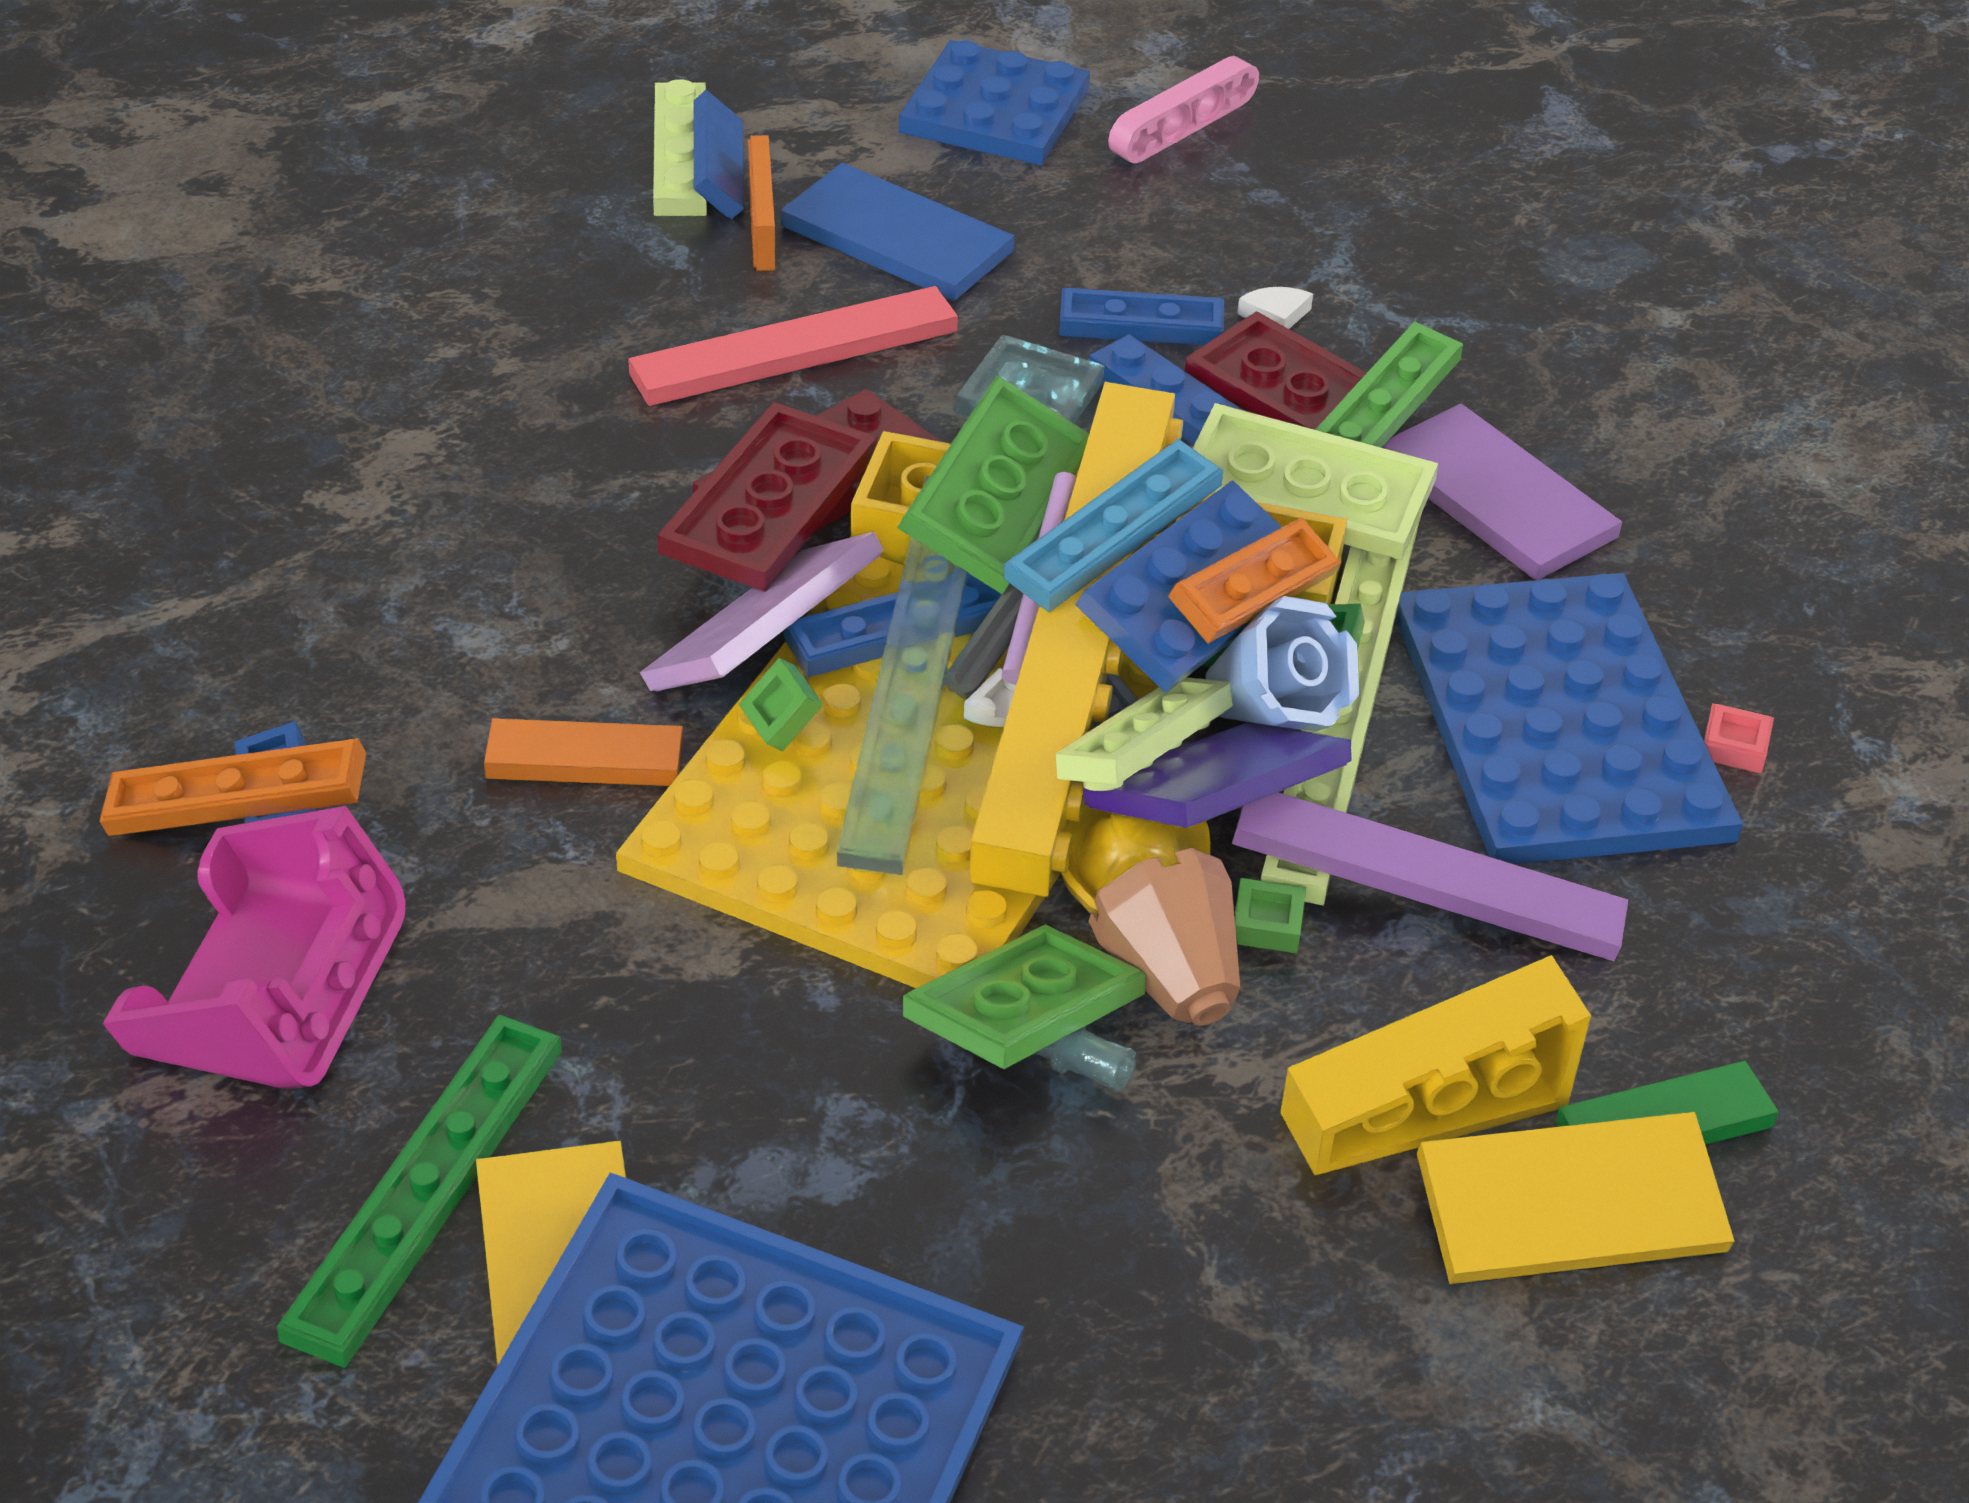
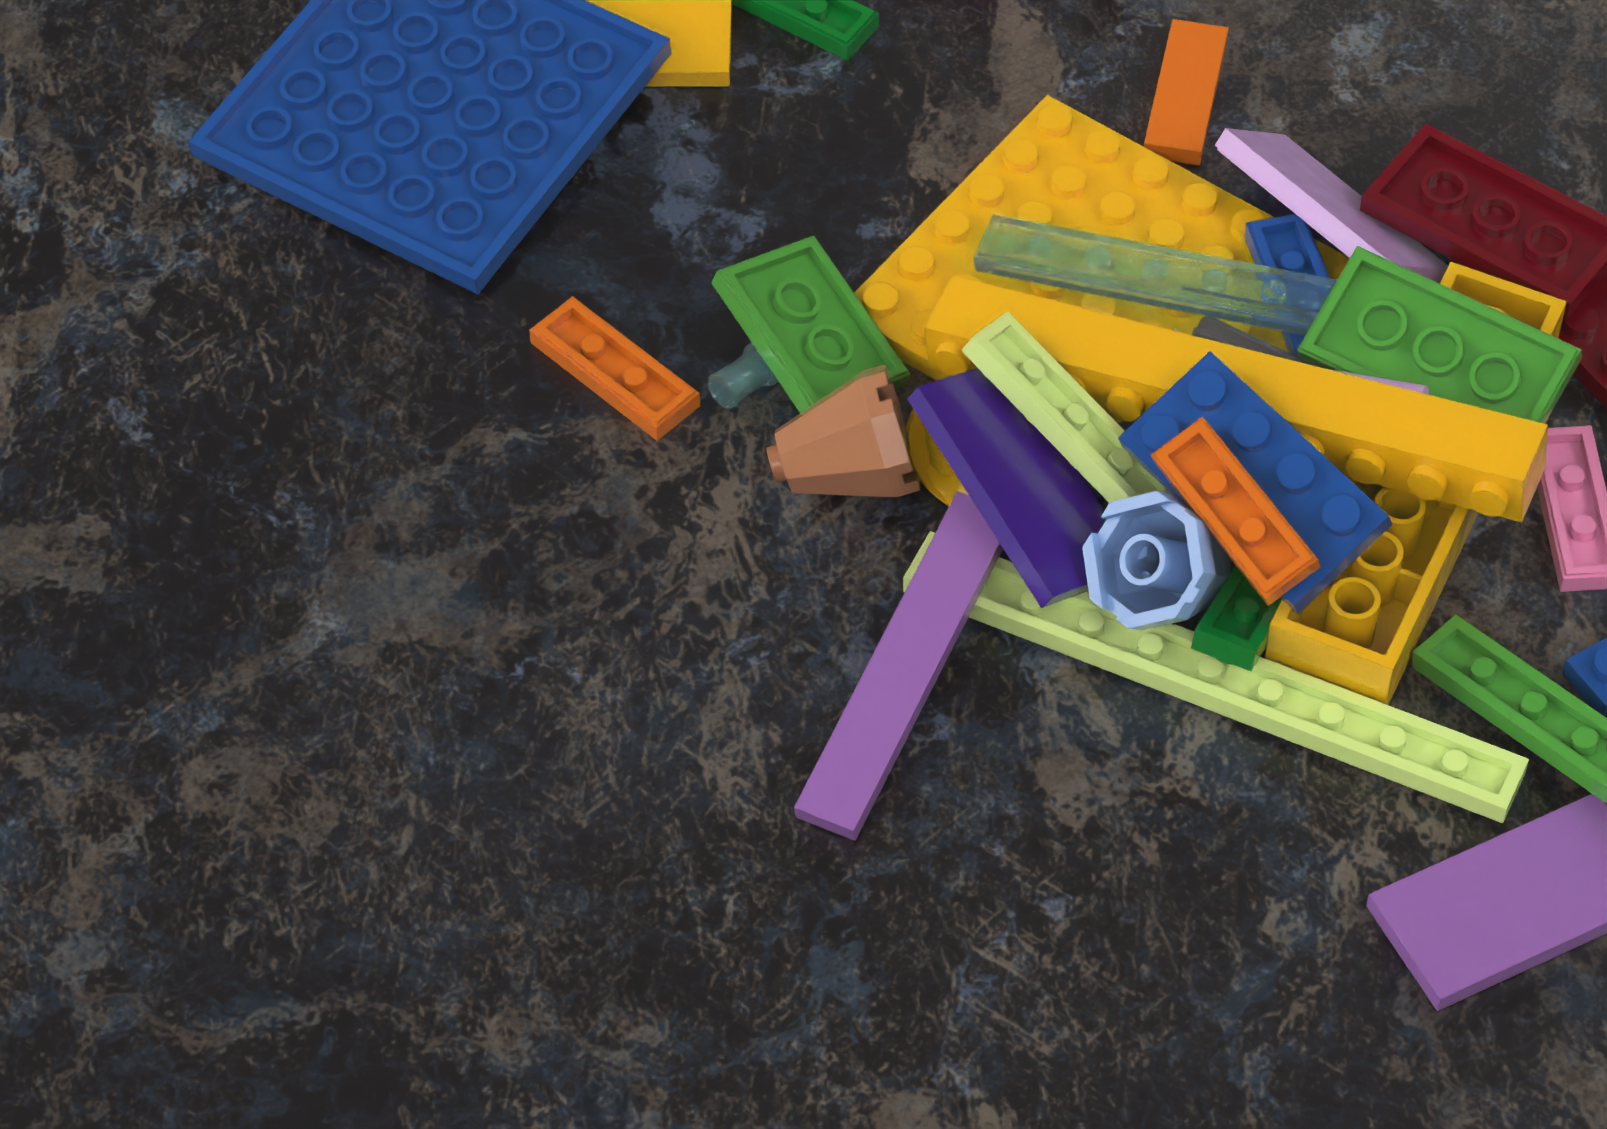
camera: 105 degrees right, 10 degrees up
(780, 704) = (1181, 193): bright green plate -> none
(1096, 1192) = (615, 368): none -> orange tile
(1112, 525) = (1325, 405): dark azure tile -> none
(1269, 915) = (887, 536): bright green plate -> none
(1321, 474) = (1482, 667): yellowish green plate -> none
(1441, 1071) = (655, 605): yellow wedge -> none
(1564, 720) = (1141, 863): blue plate -> none
(1573, 1197) = (509, 686): yellow tile -> none
(1724, 1098) = (589, 794): green tile -> none
(1738, 737) = (1081, 1017): coral tile -> none

